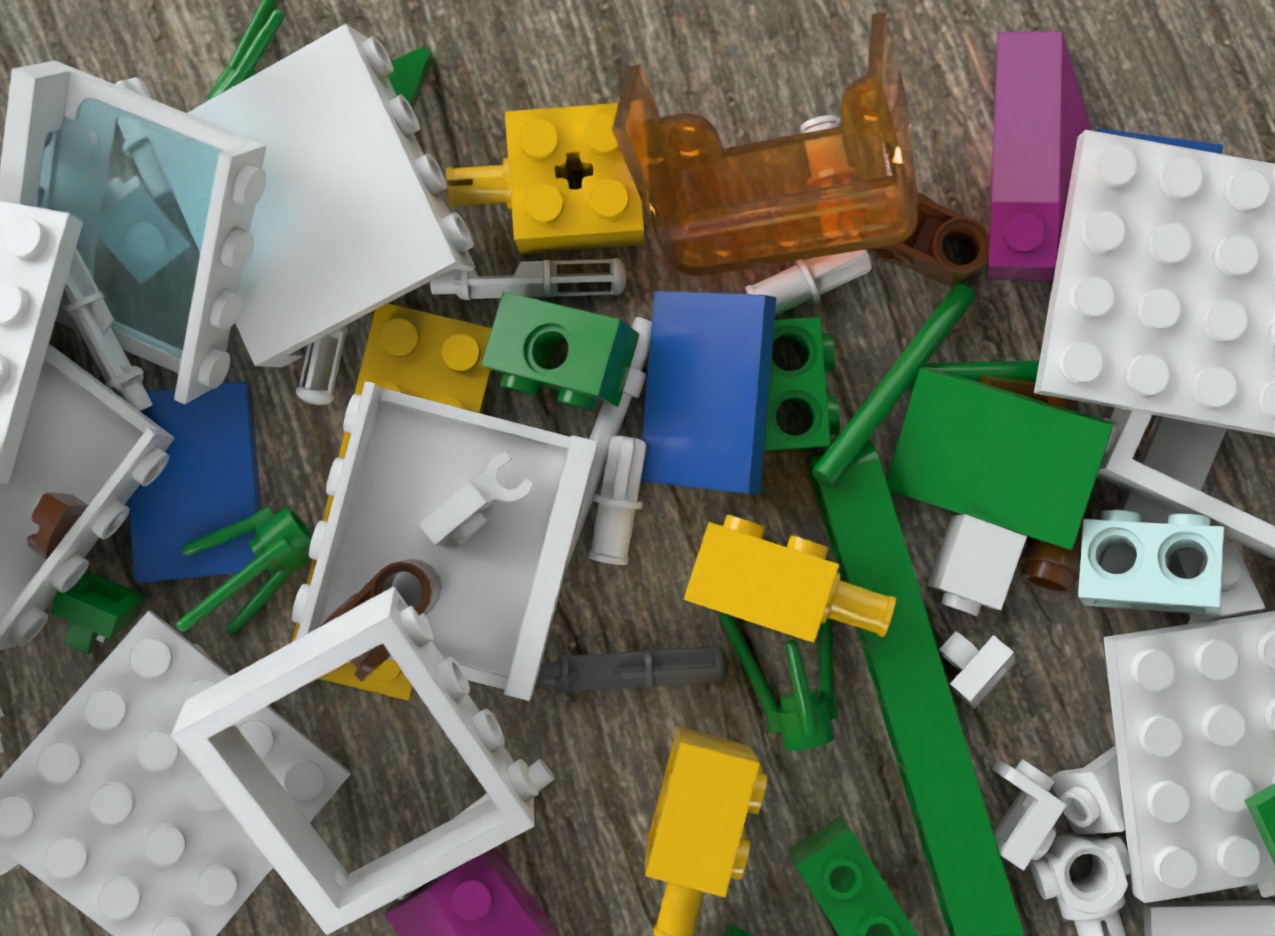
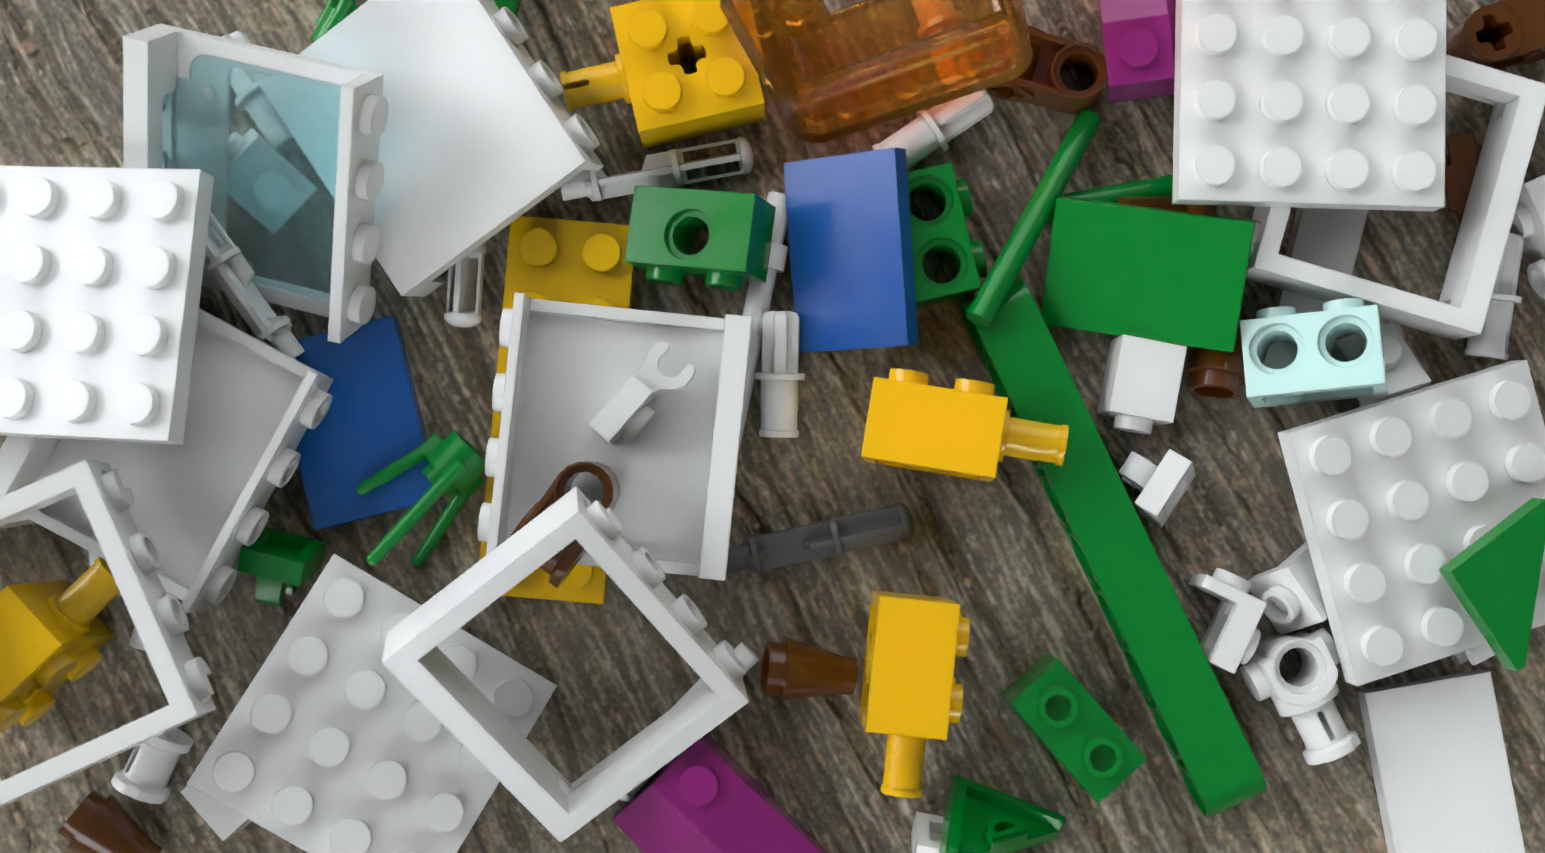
camera: 10 degrees left, 0 degrees up
(55, 516) = (232, 470): reddish brown tile -> none
(597, 798) = (804, 671): none -> reddish brown cone
(803, 715) = (995, 557): green plant -> none

